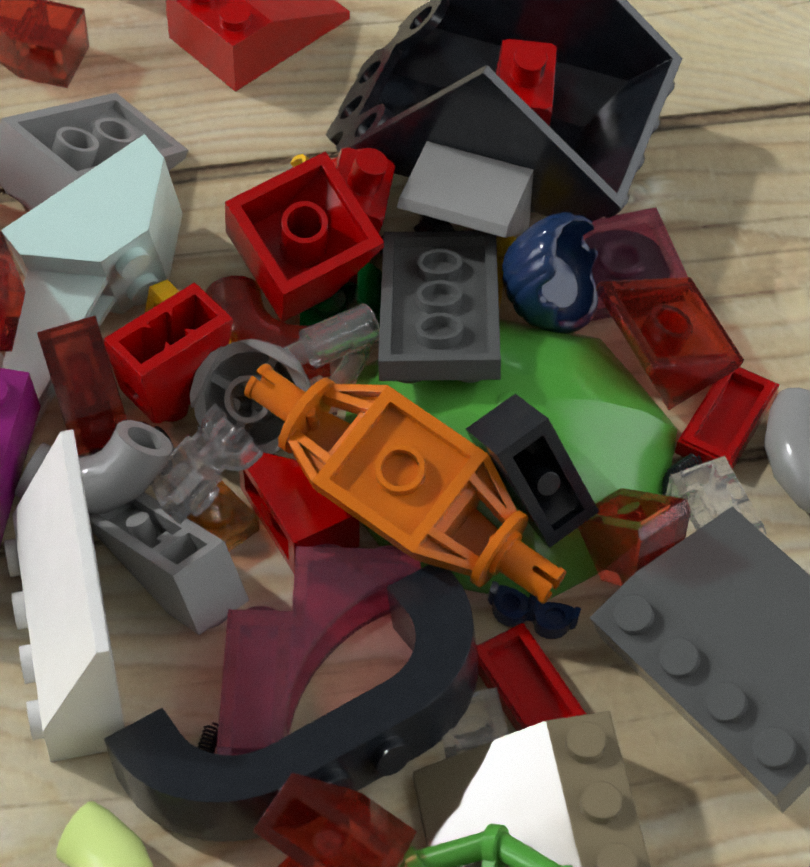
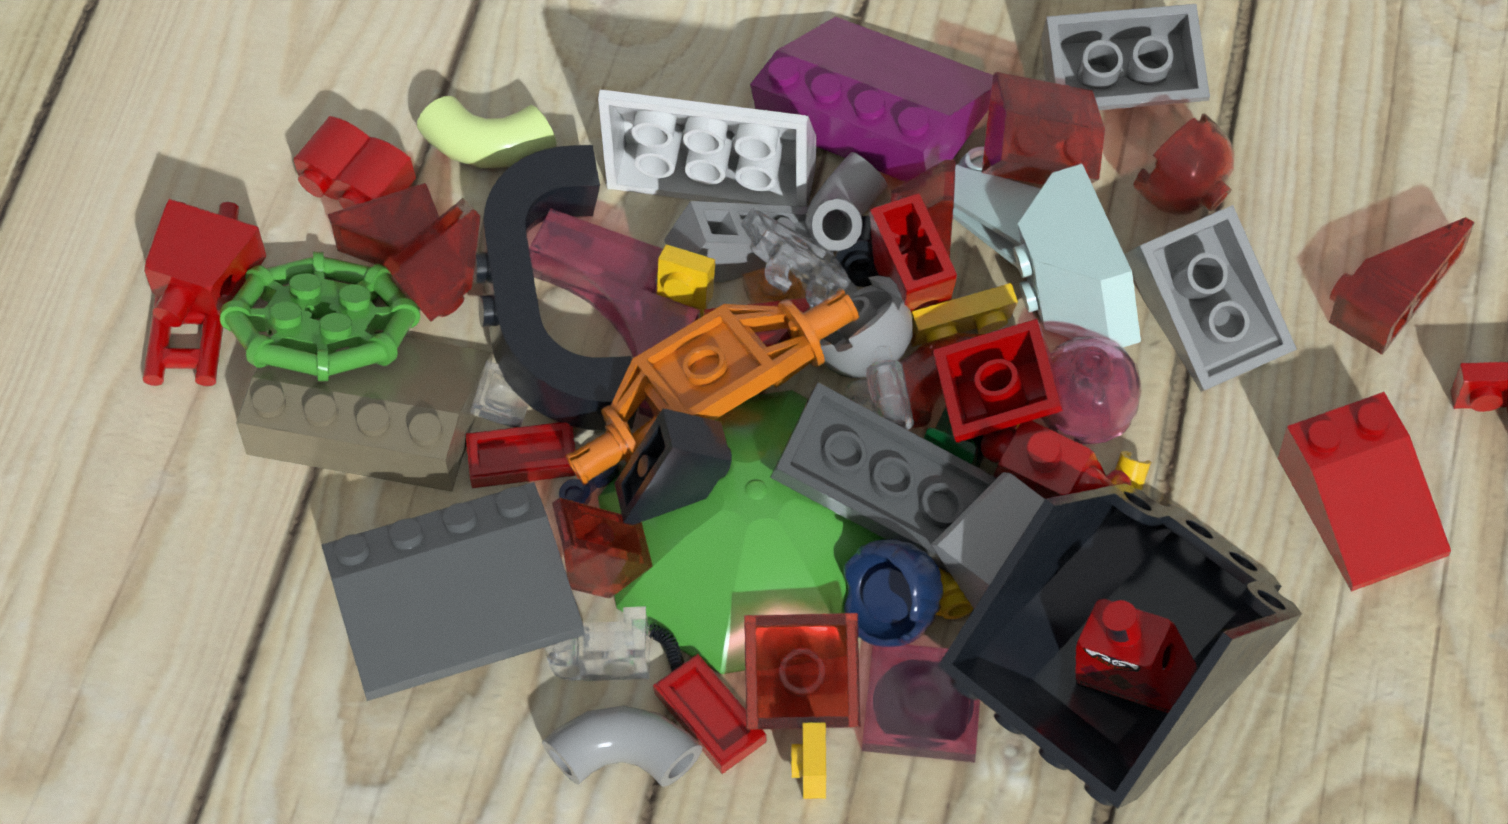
camera: 115 degrees right, 5 degrees up
(202, 223) = (1097, 389): none -> clear pink cylinder
(268, 565) = (686, 277): none -> yellow plate
(741, 307) = (809, 760): none -> yellow plate

